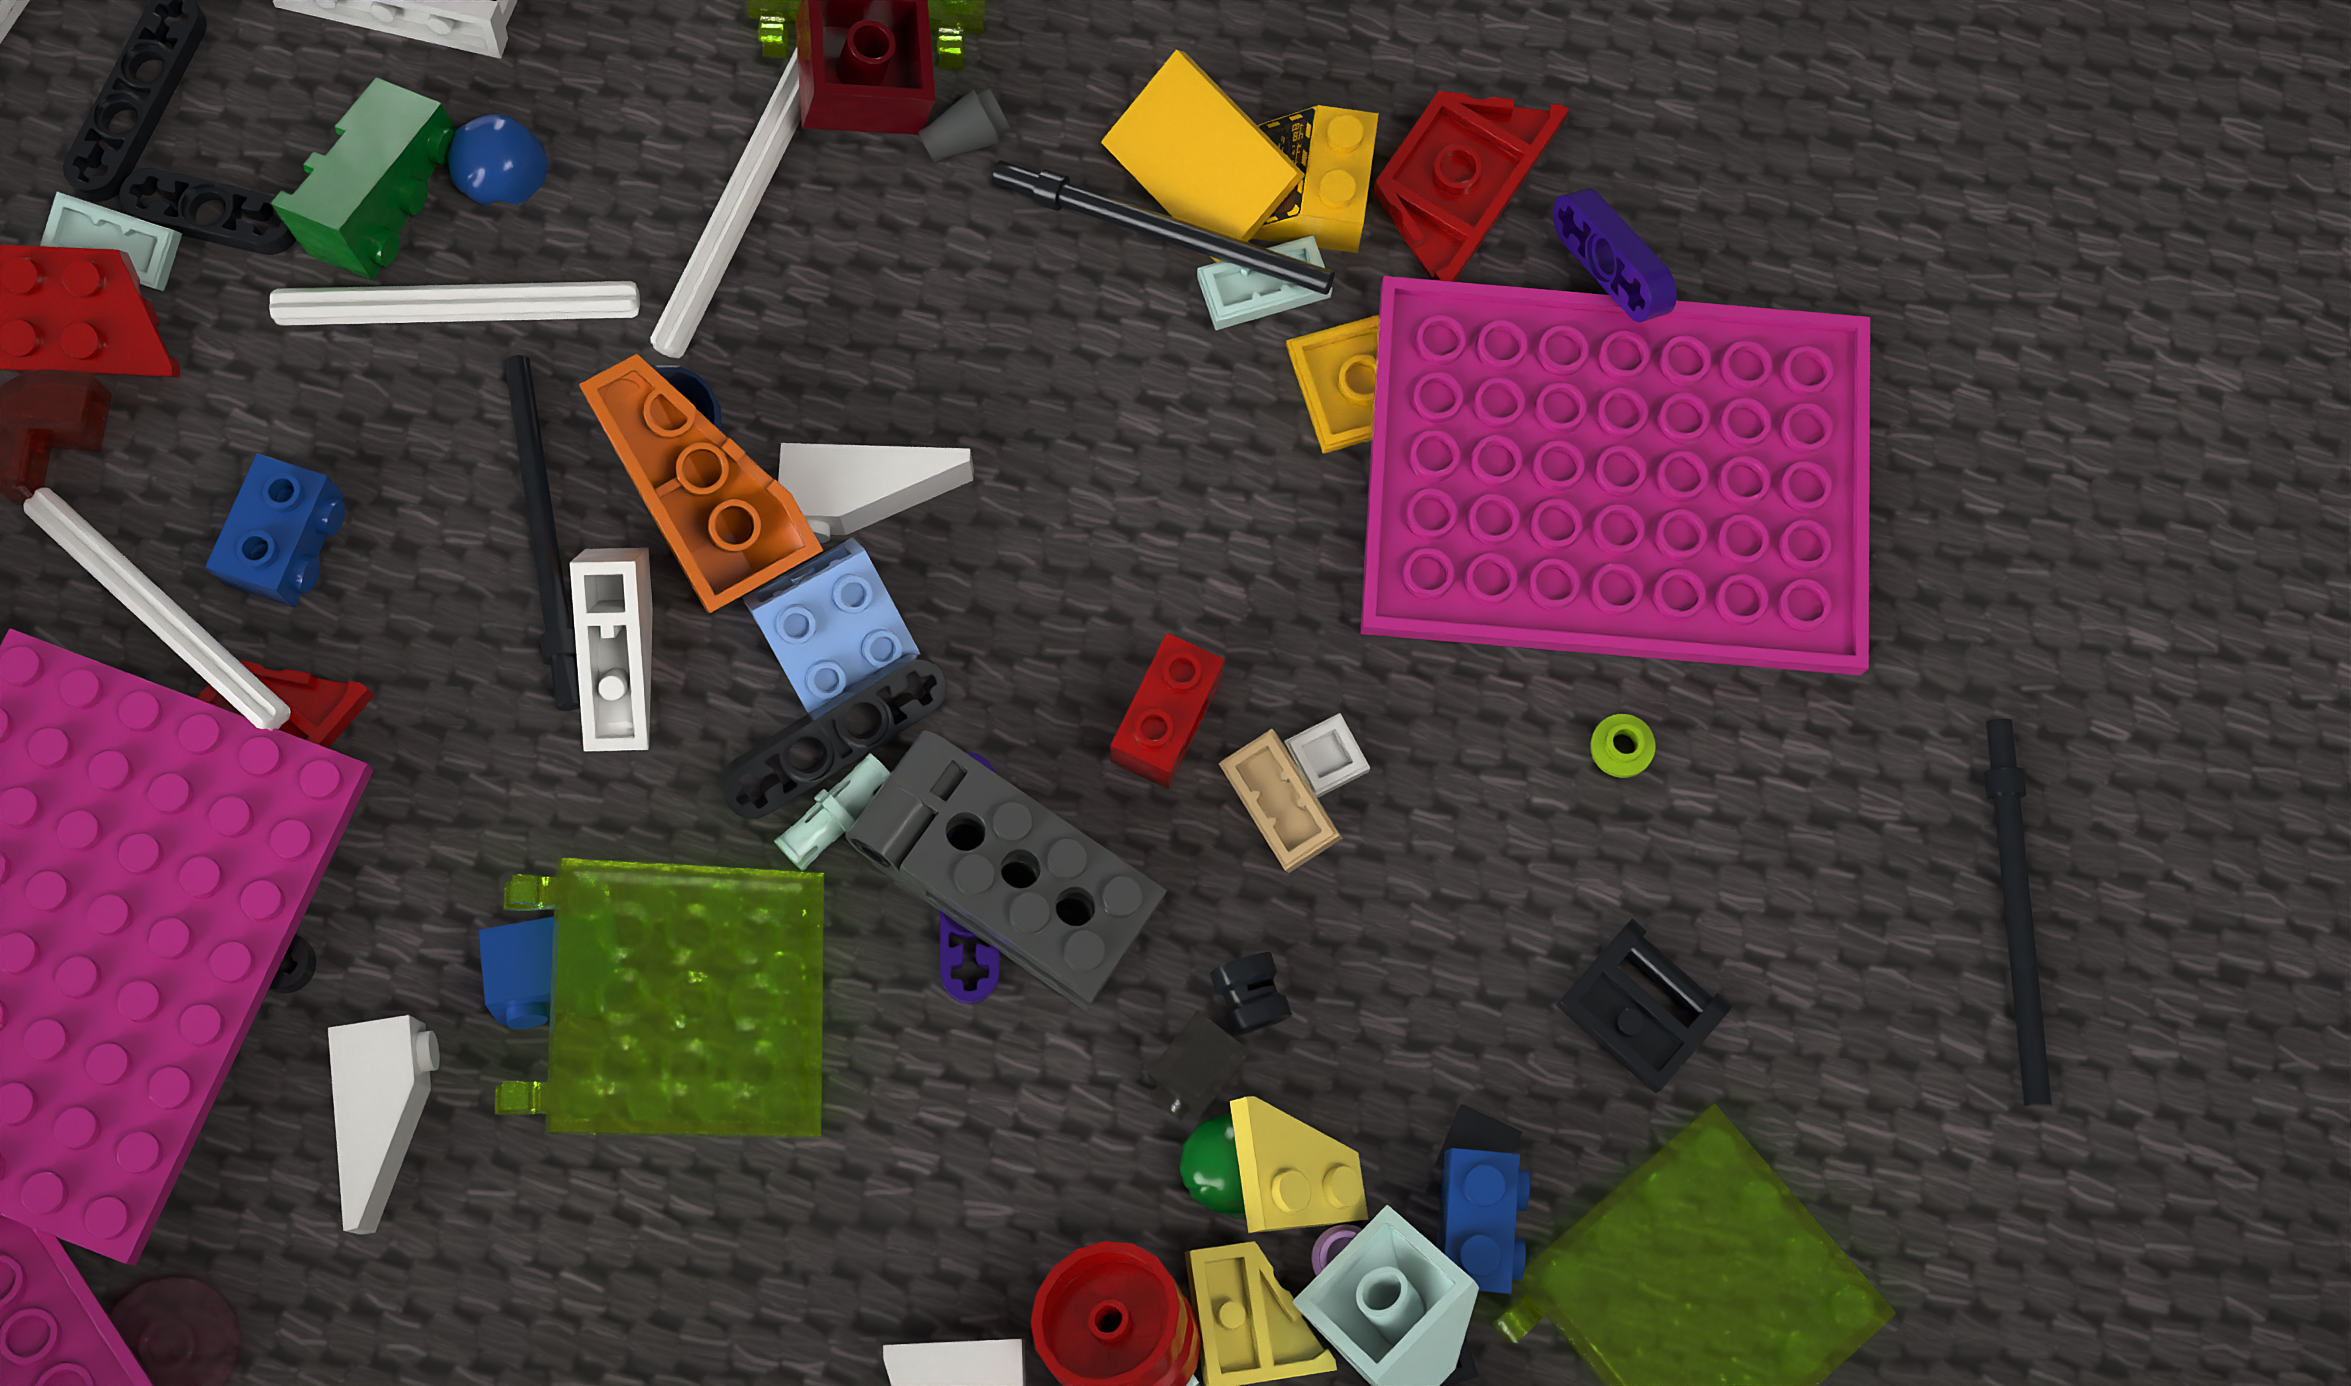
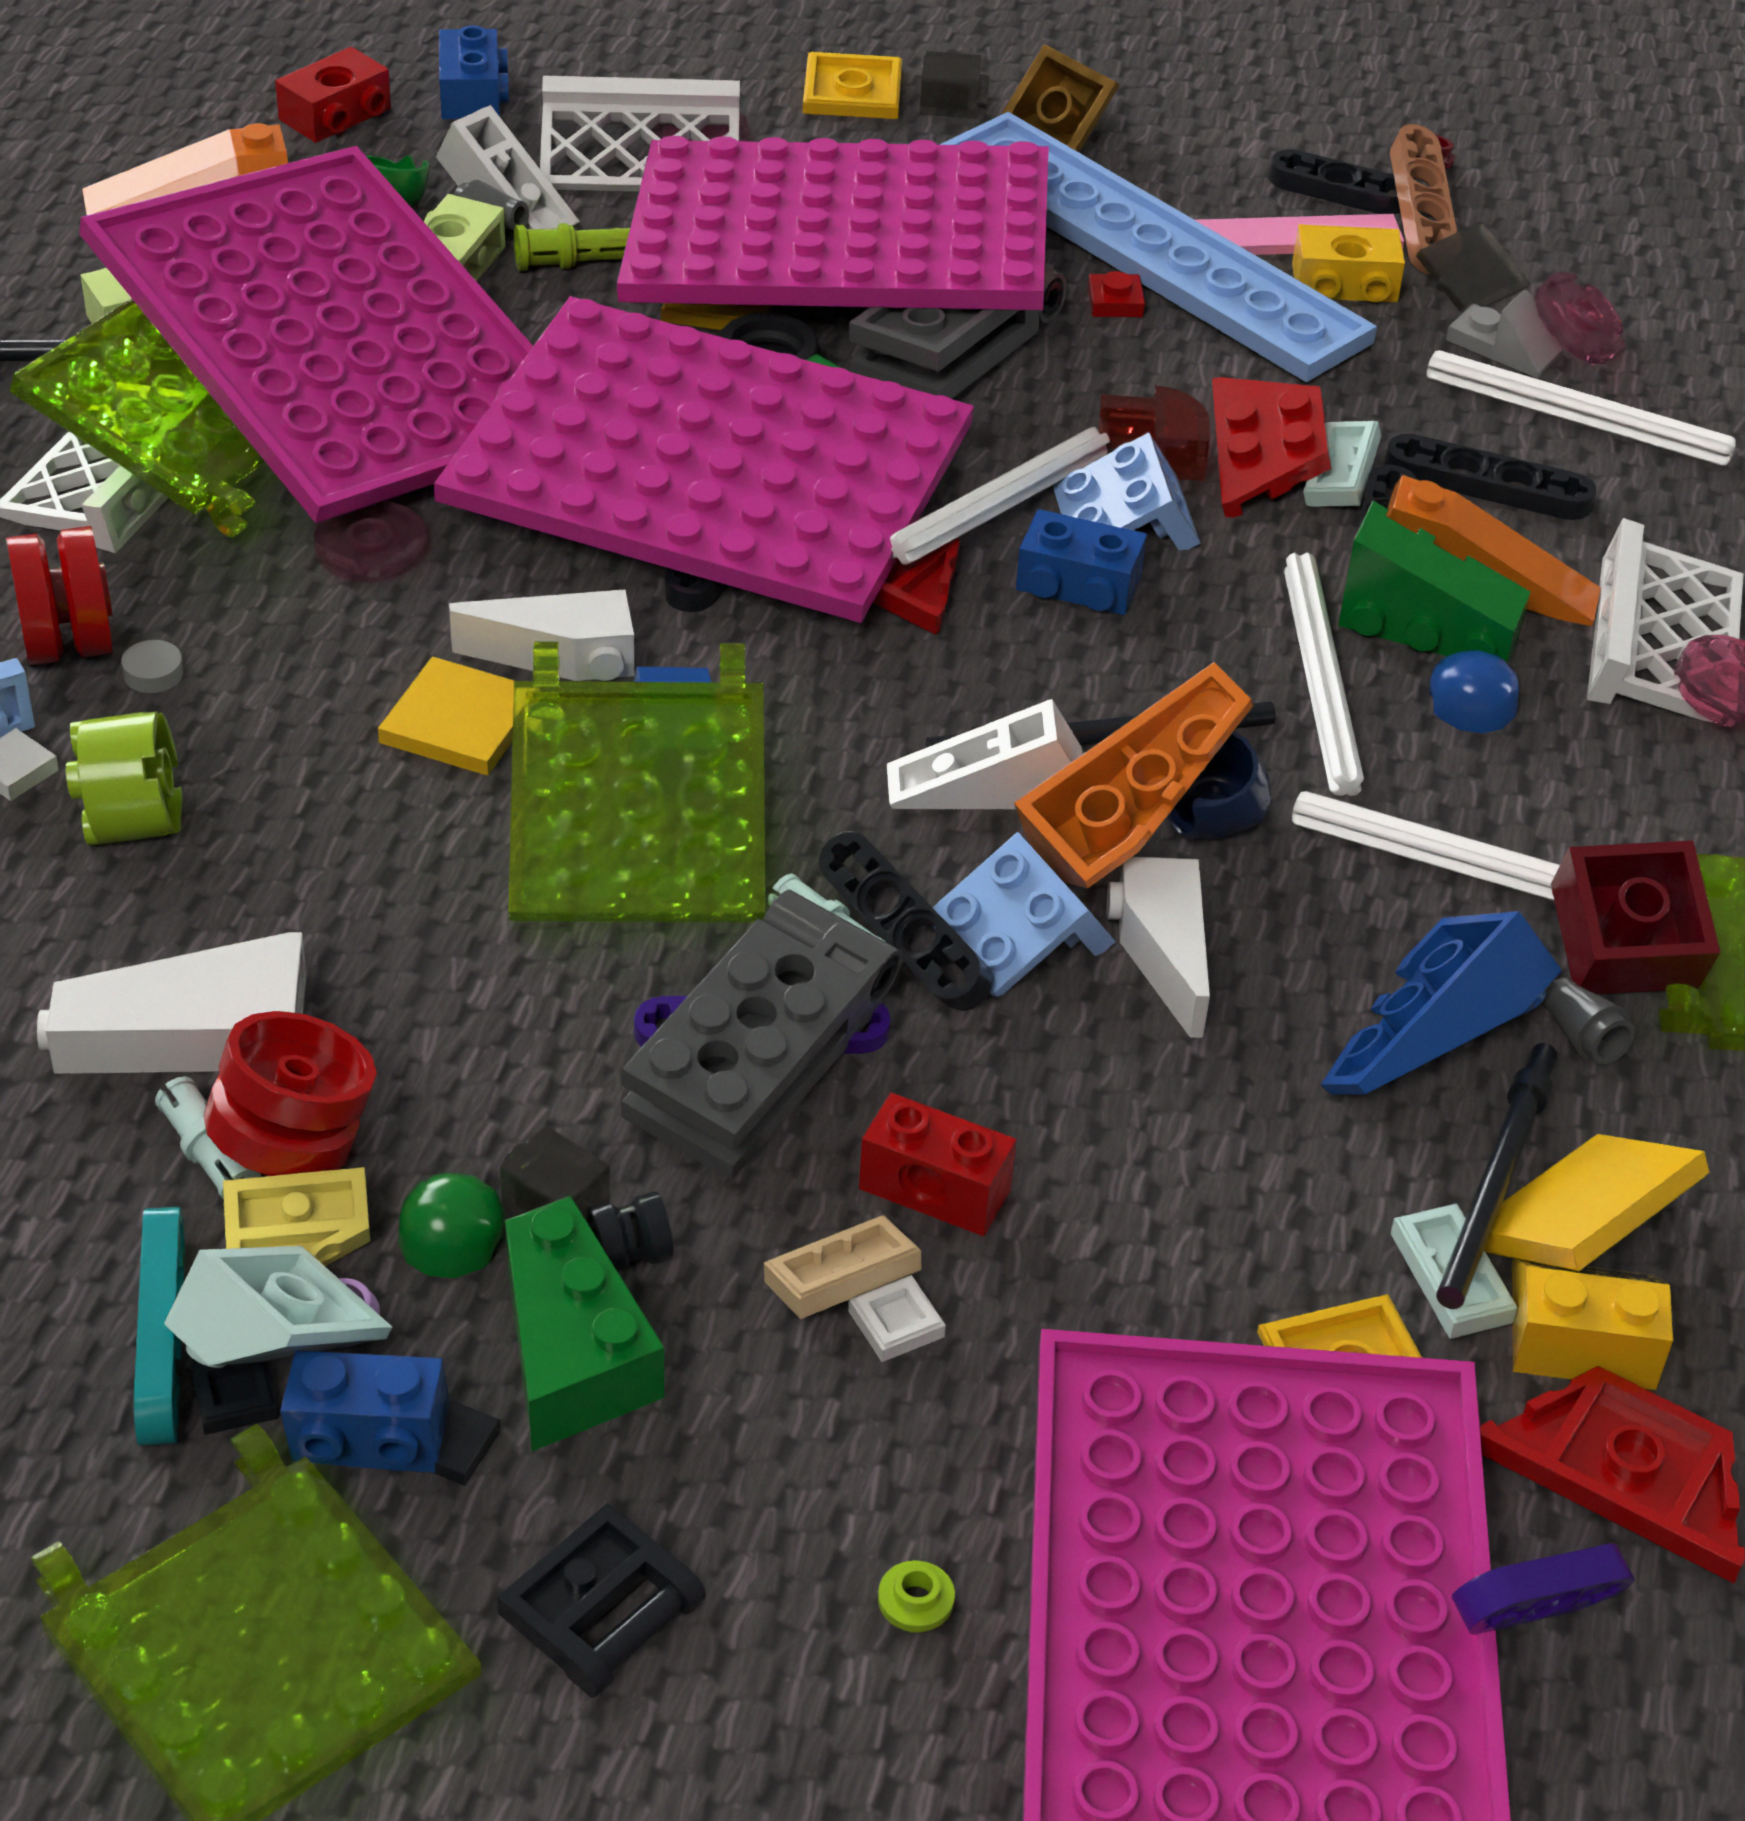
camera: 90 degrees right, 30 degrees down
(162, 479) = (1129, 491): none -> light blue bracket
(281, 123) = (1470, 531): none -> orange wedge
(494, 1214) = (453, 716): none -> yellow tile
(942, 236) = (1458, 986): none -> blue wedge
(1293, 1171) = (432, 1249): light yellow wing -> none
(1369, 1040) = (576, 1327): none -> green wedge

